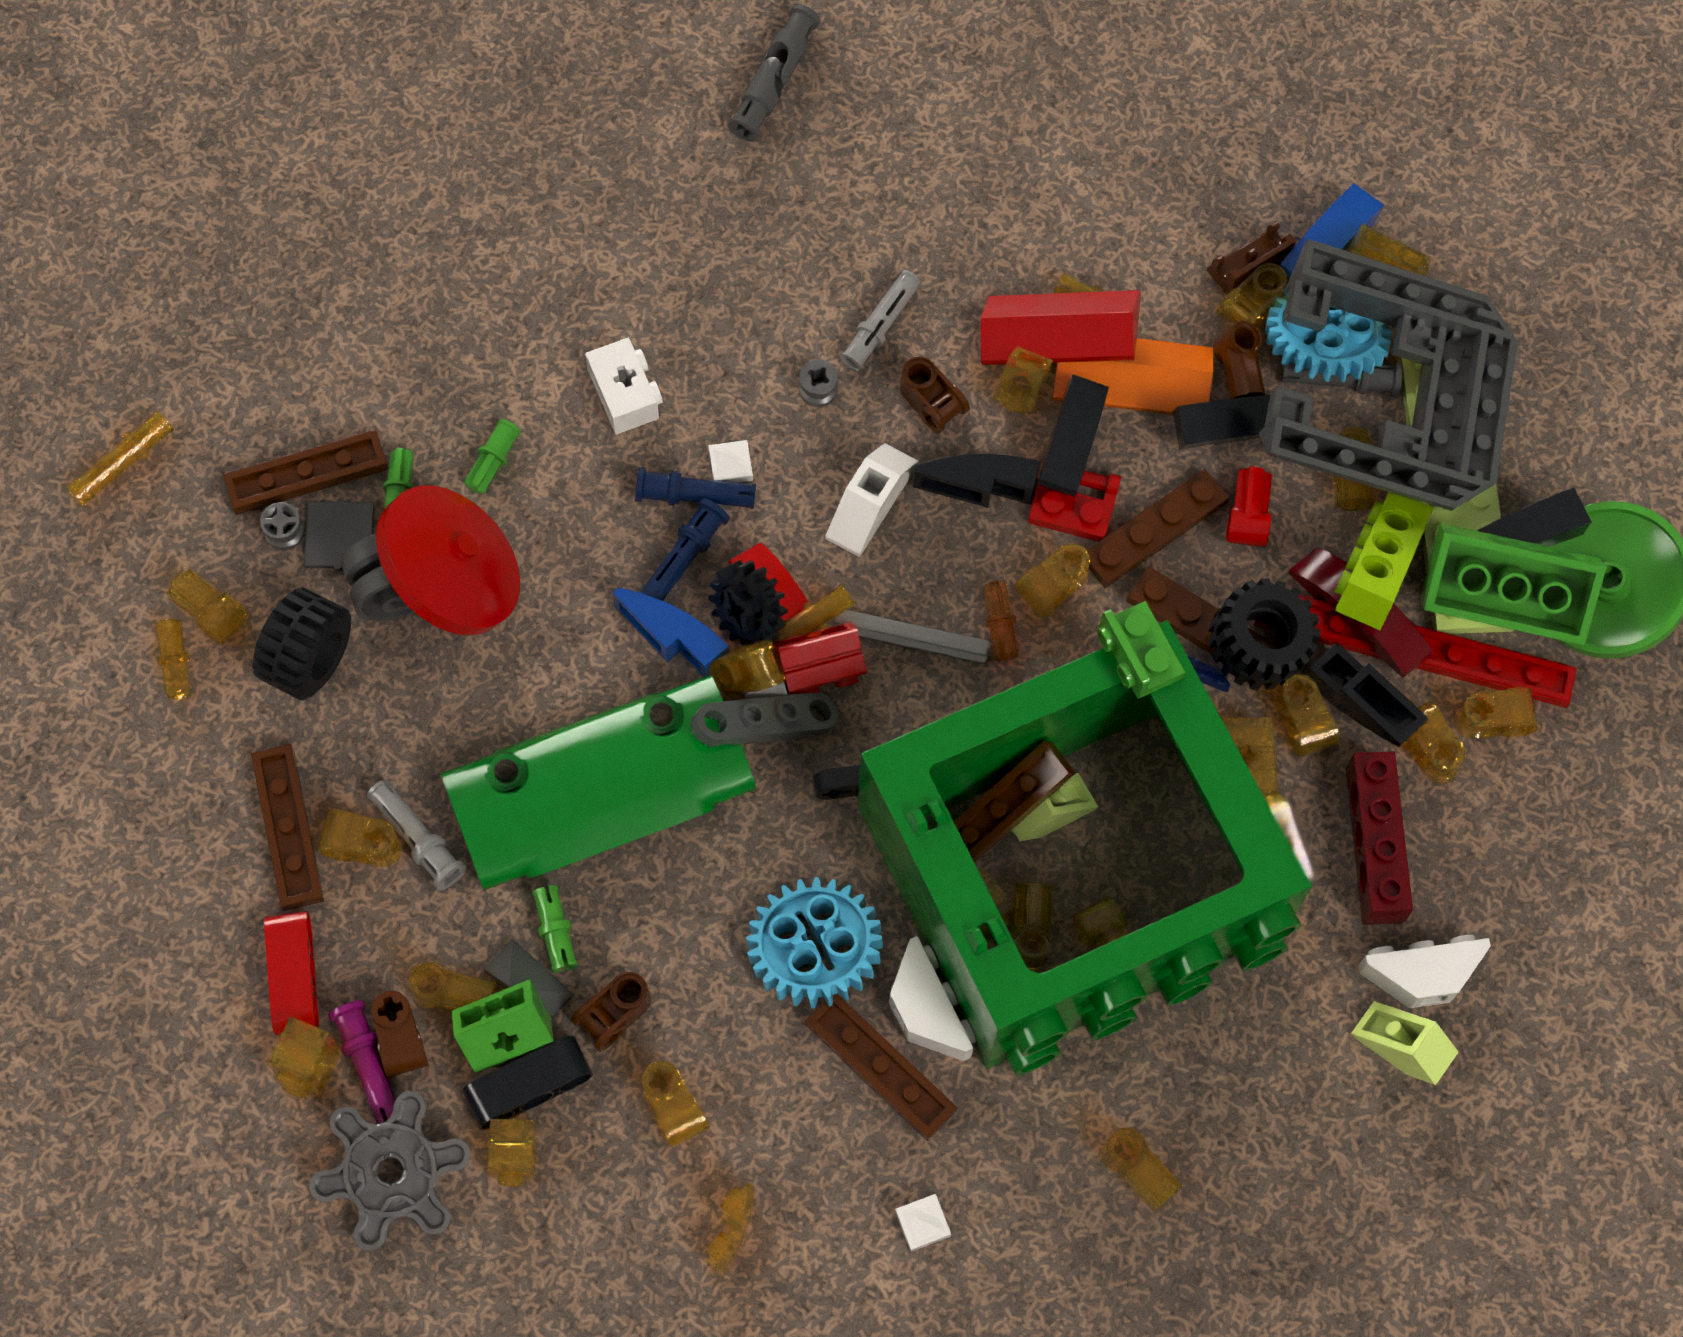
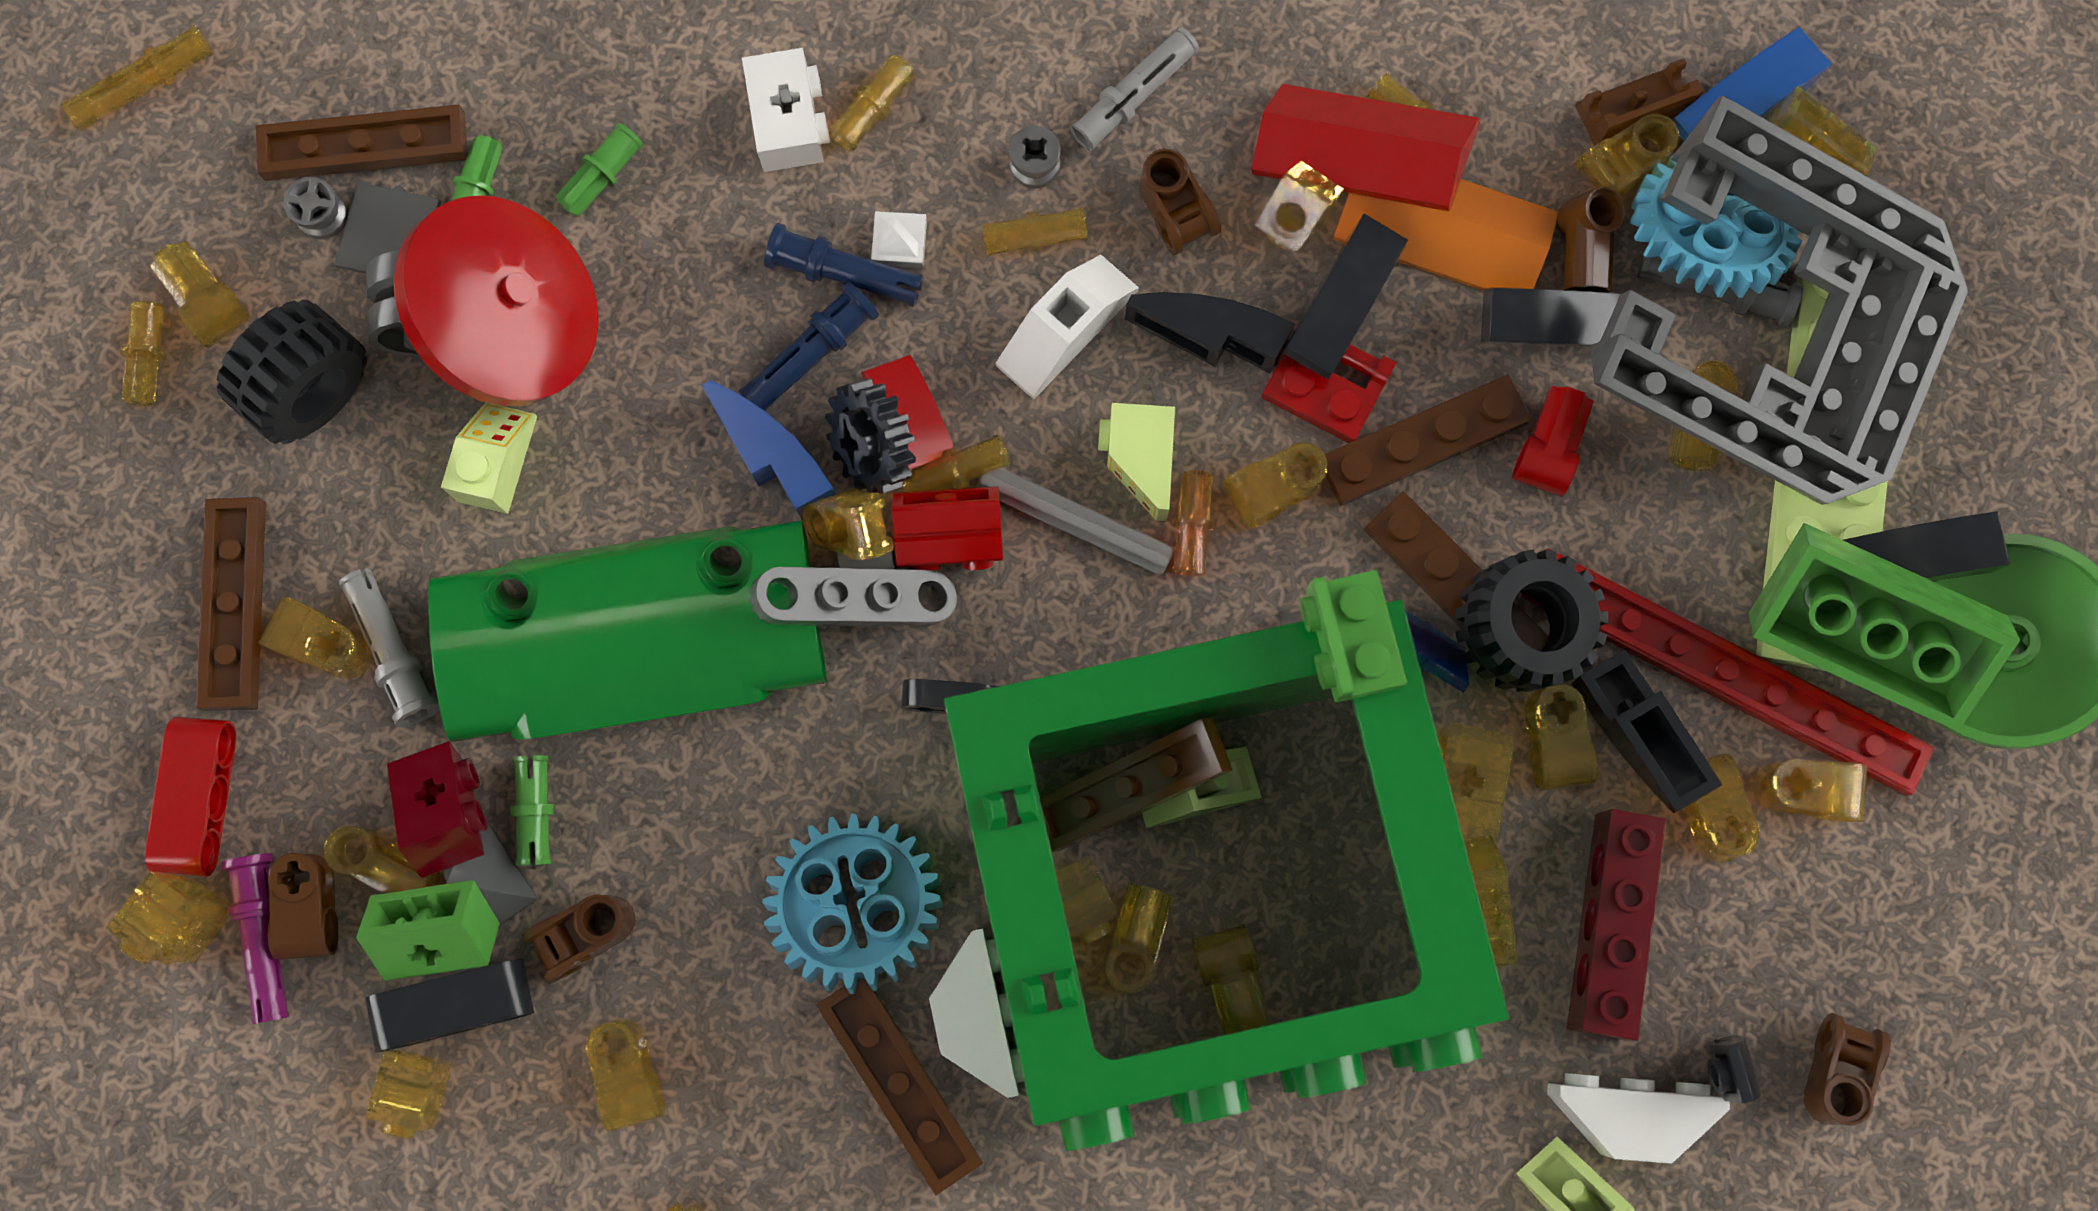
camera: 15 degrees right, 10 degrees up
(359, 1177) = (225, 1111): flat silver plate -> none
(460, 681) = (489, 457): none -> yellowish green slope
(487, 937) = (436, 809): none -> dark red brick
(686, 368) = (871, 103): none -> clear yellow pin
(831, 436) = (1035, 231): none -> clear yellow pin
(950, 577) = (1141, 452): none -> yellowish green slope
(1383, 560) = (1714, 555): lime brick -> none
(1396, 642) = (1672, 607): dark red slope -> none
(1486, 917) = (1733, 1070): none -> black slope
(1570, 900) = (1851, 1061): none -> reddish brown piece

